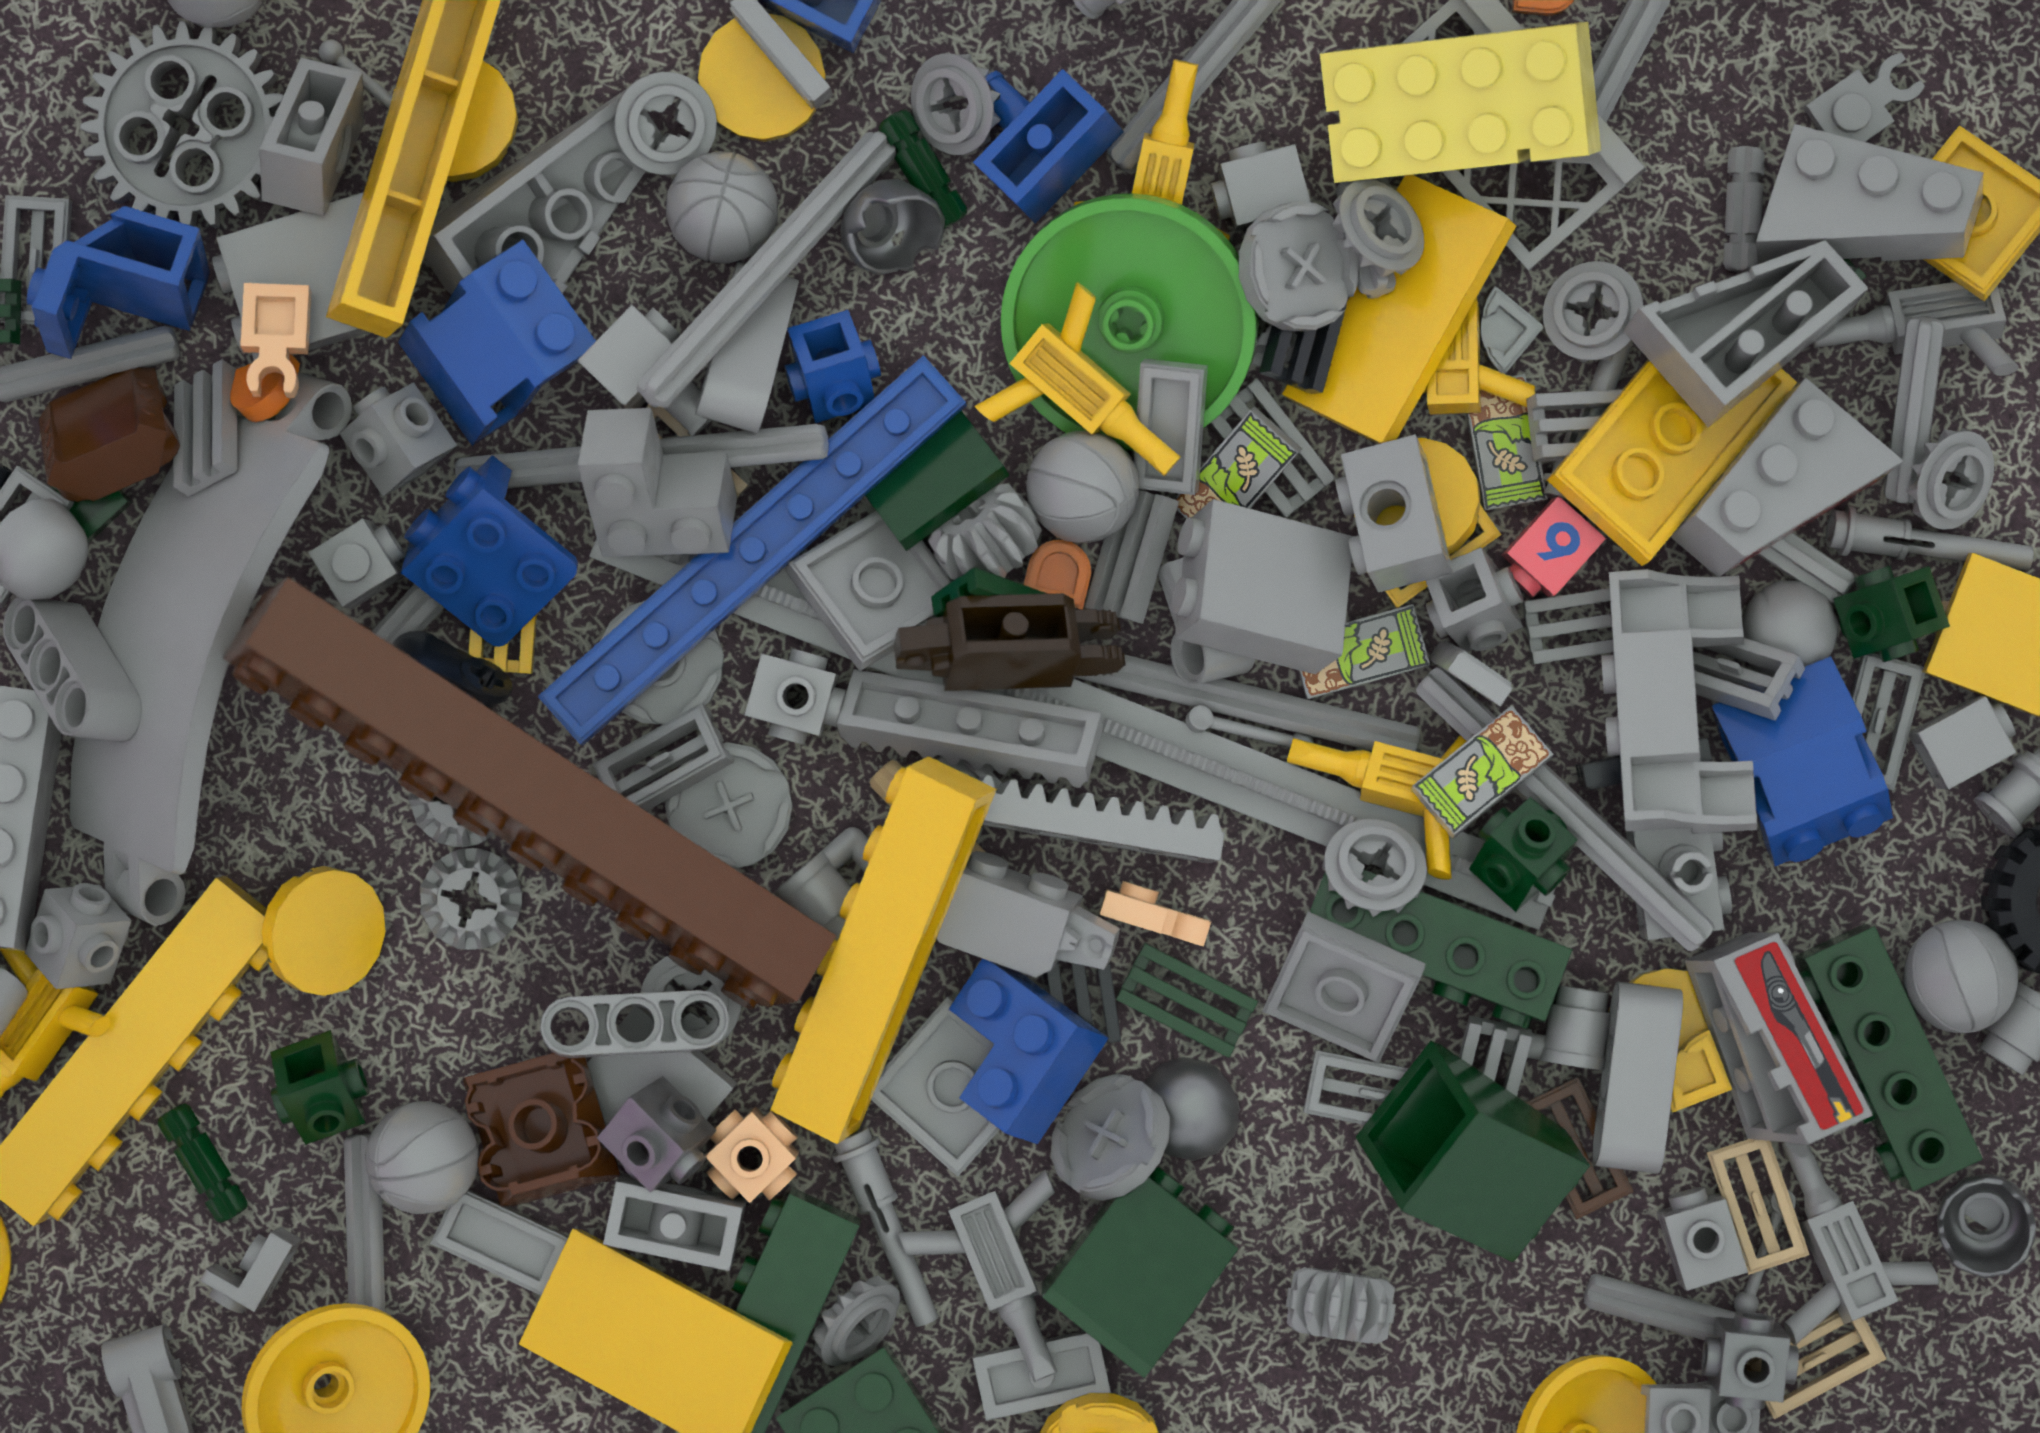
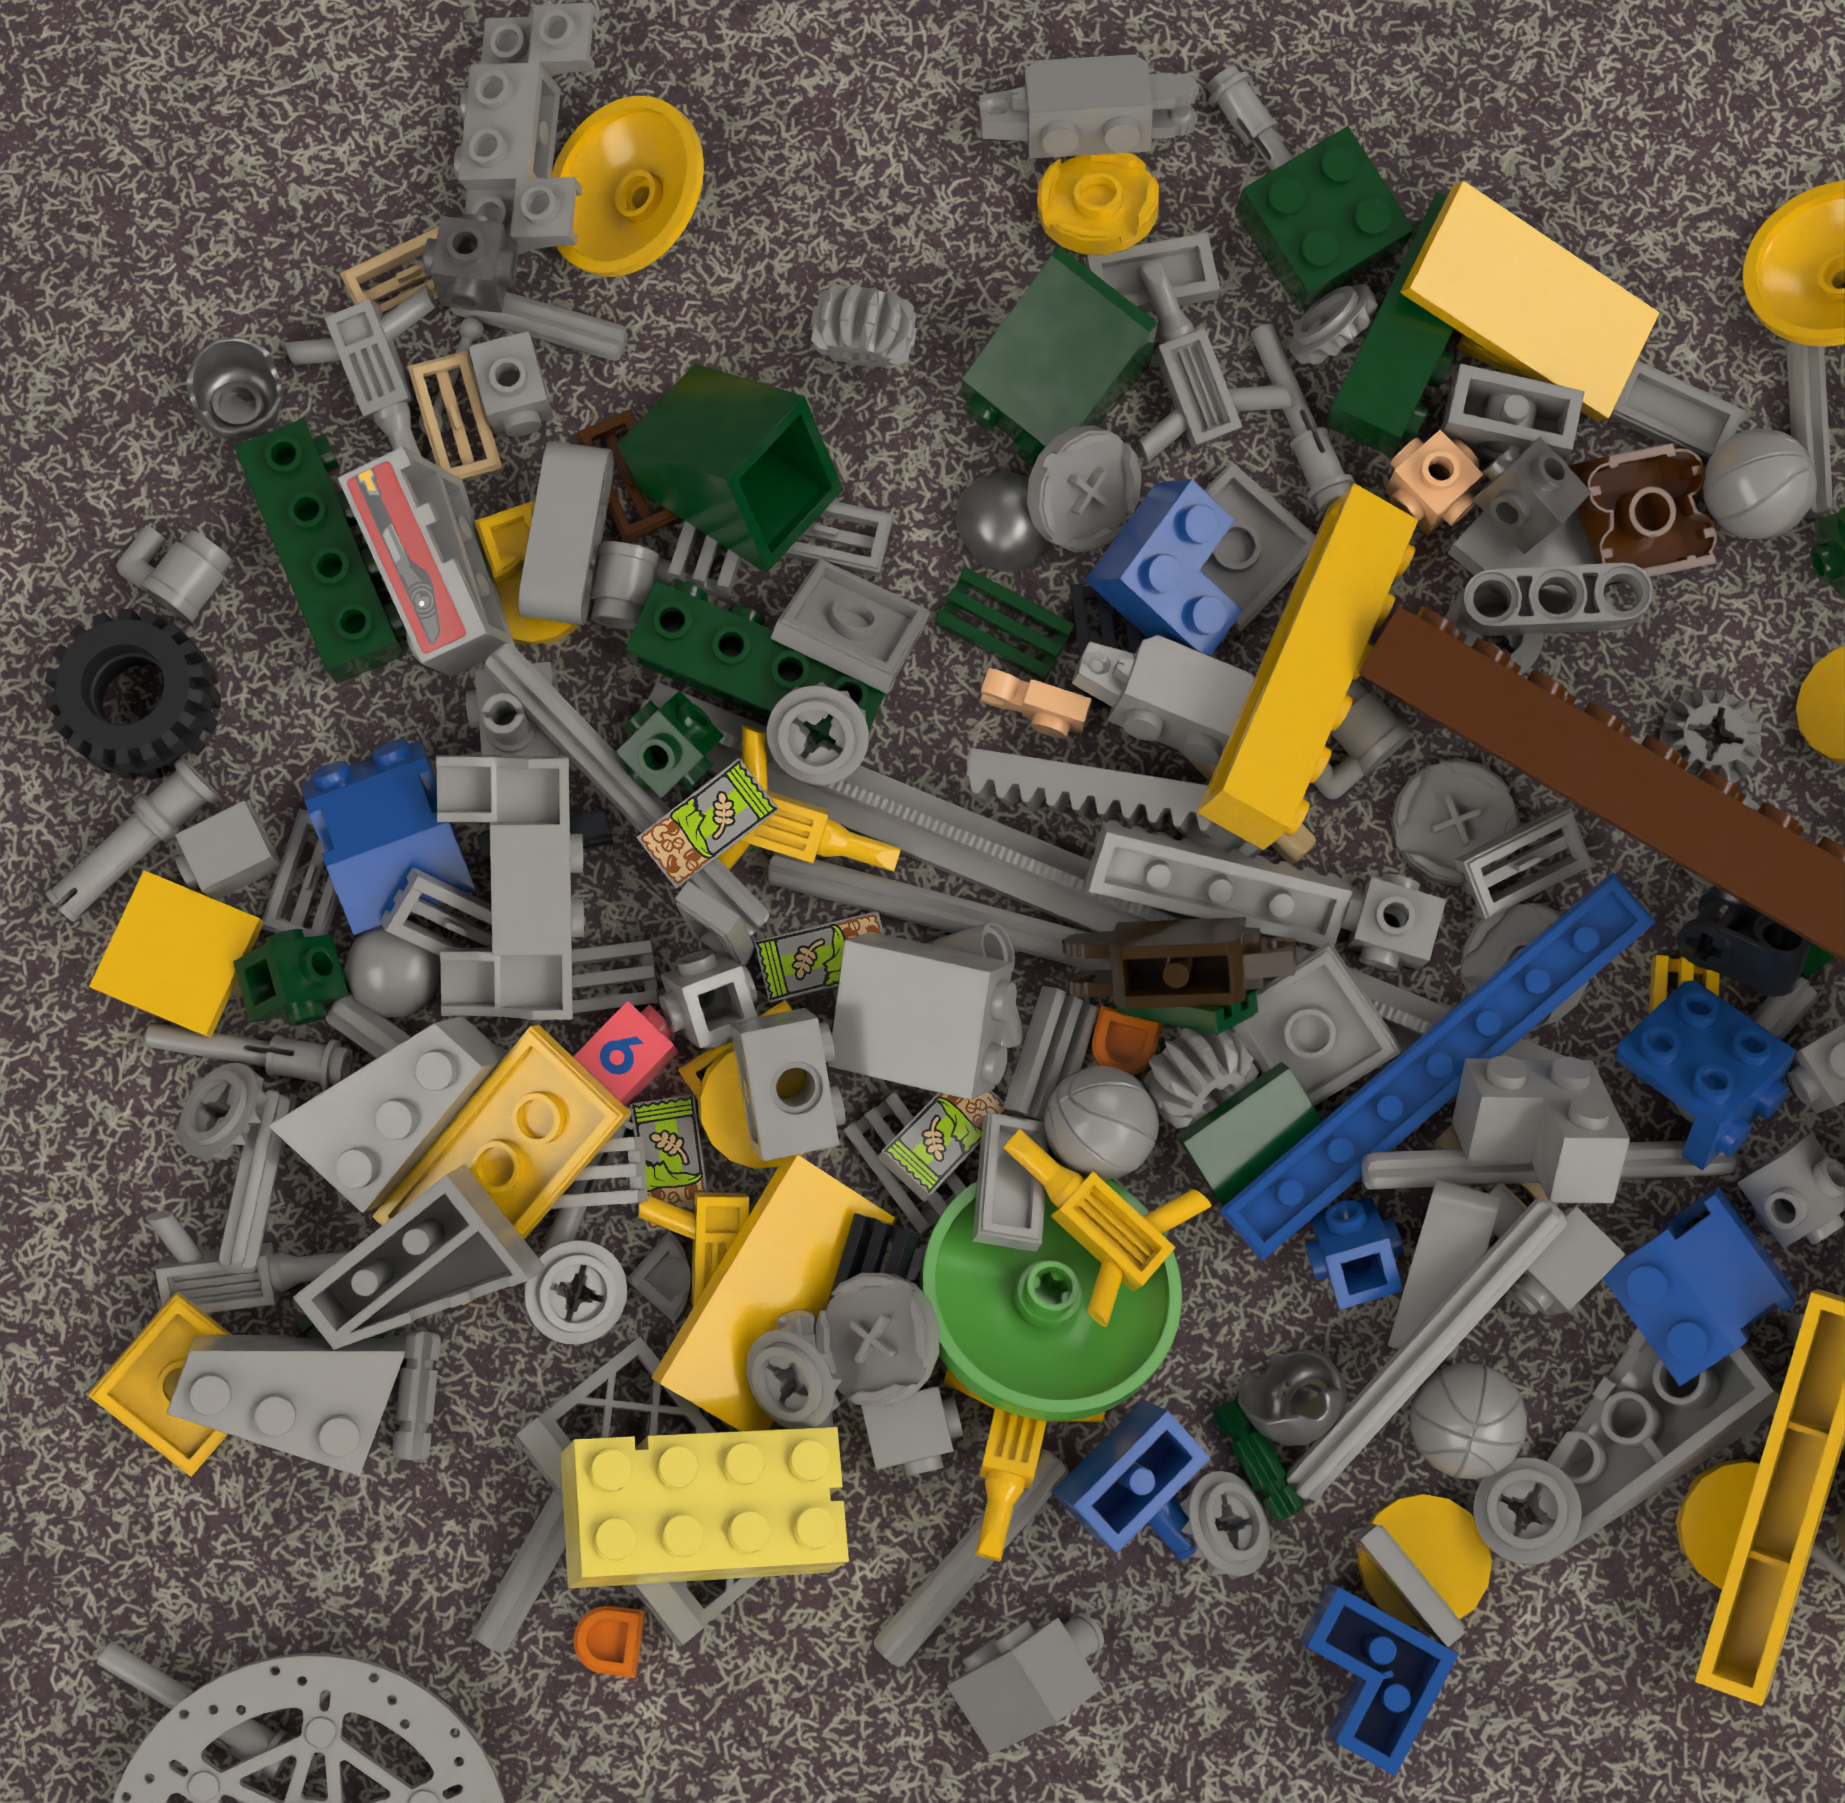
camera: 175 degrees left, 10 degrees down
(1201, 718) = (984, 892): light grey hinge -> none
(1858, 108) = (296, 1497): light grey plate -> none
(1960, 976) = (244, 621): light grey piece -> none

